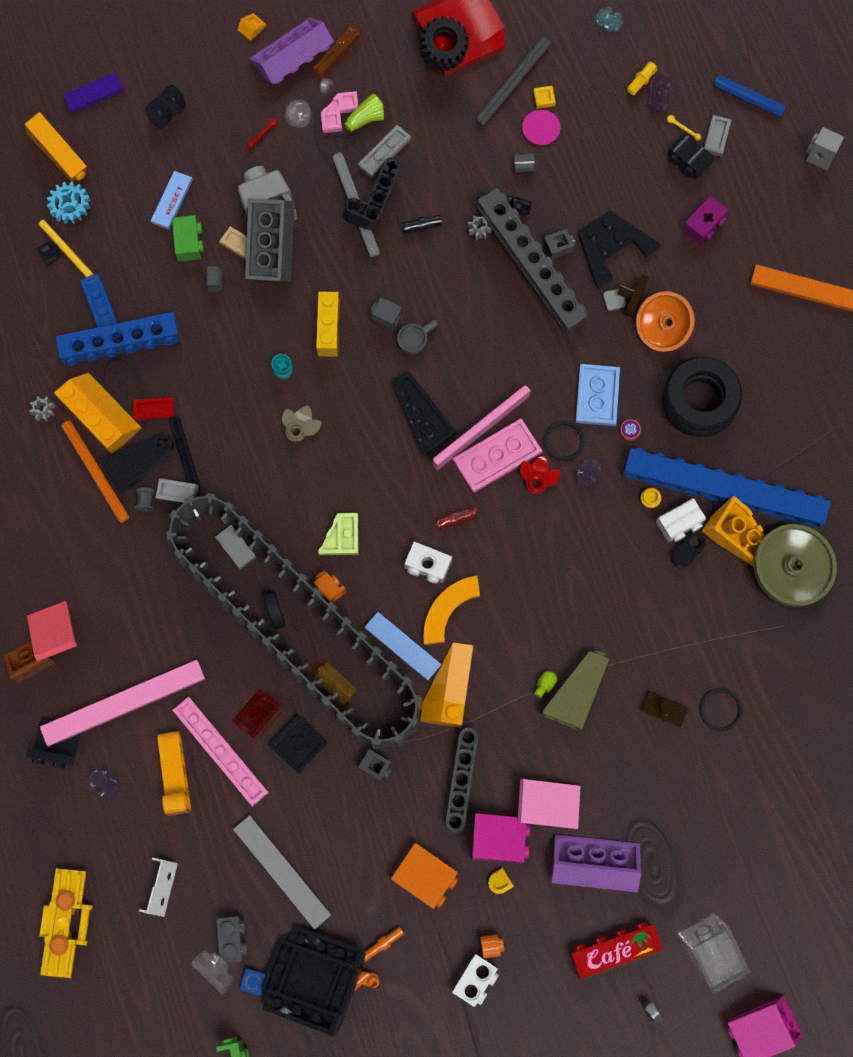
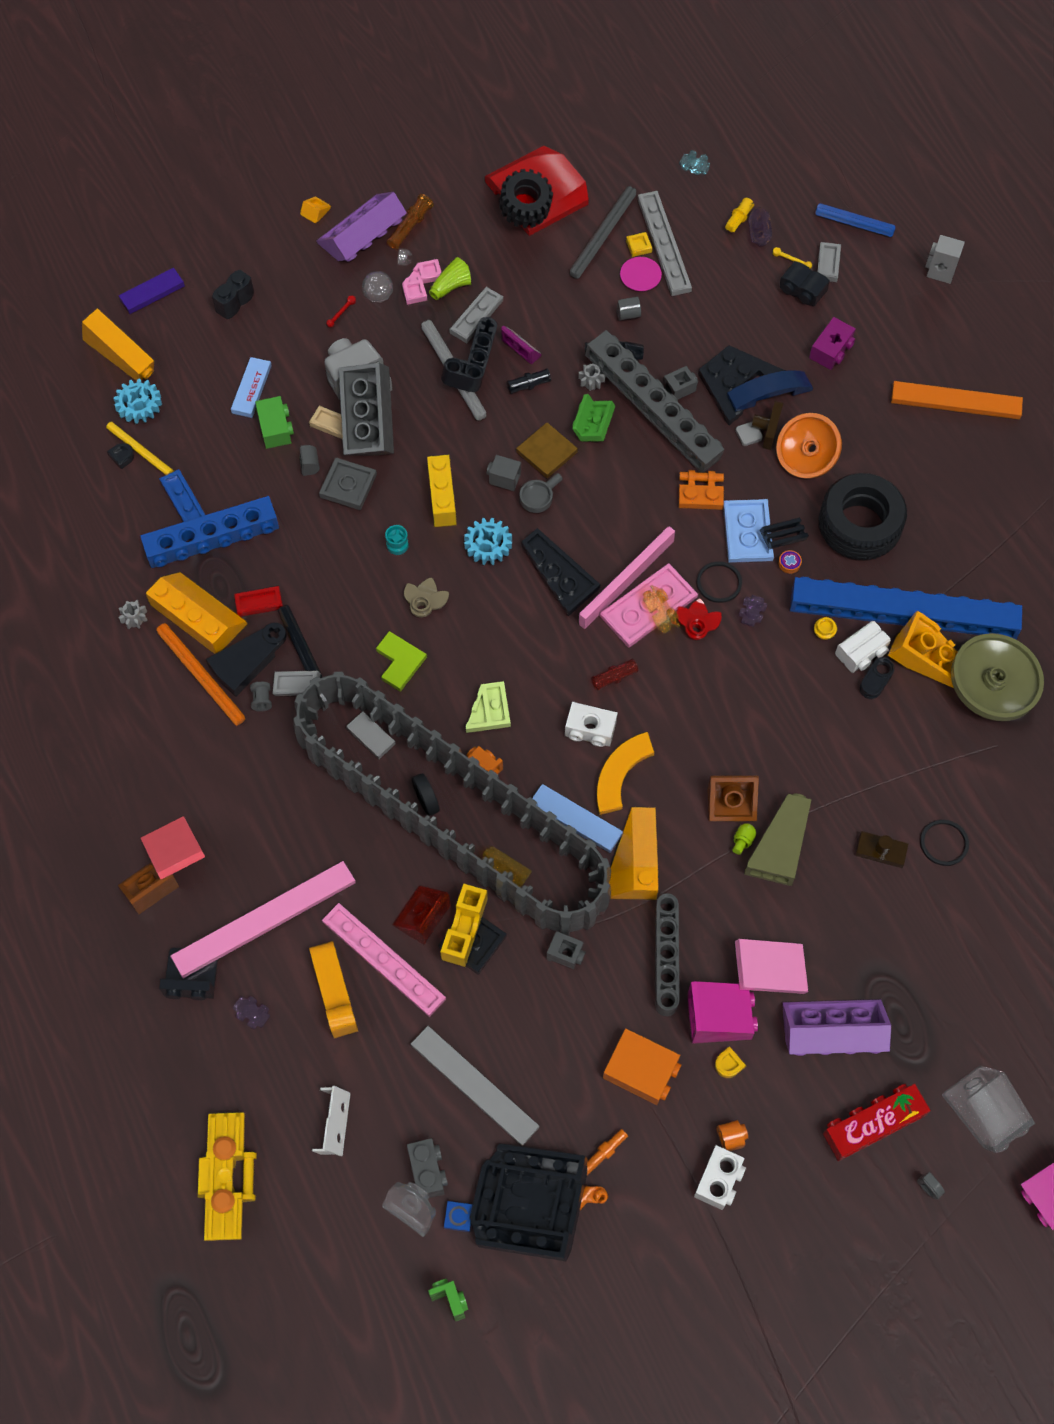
camera: 10 degrees left, 10 degrees down
(246, 306) = (348, 483): none -> dark grey plate
(275, 481) = (405, 660): none -> lime tile
(288, 741) = (465, 925): none -> yellow arch
(368, 373) = (488, 539): none -> medium azure gear
(420, 187) = (519, 345): none -> magenta slope
(428, 294) = (547, 450): none -> pearl gold tile
(474, 270) = (593, 419): none -> bright green bracket
(505, 454) = (658, 601): none -> hinge
(541, 648) = (733, 798): none -> dark orange slope
(561, 356) = (701, 496): none -> orange plate
(568, 98) = (664, 243): none -> light grey tile
(639, 257) = (768, 386): none -> dark blue slope
(644, 399) = (783, 525): none -> black tile

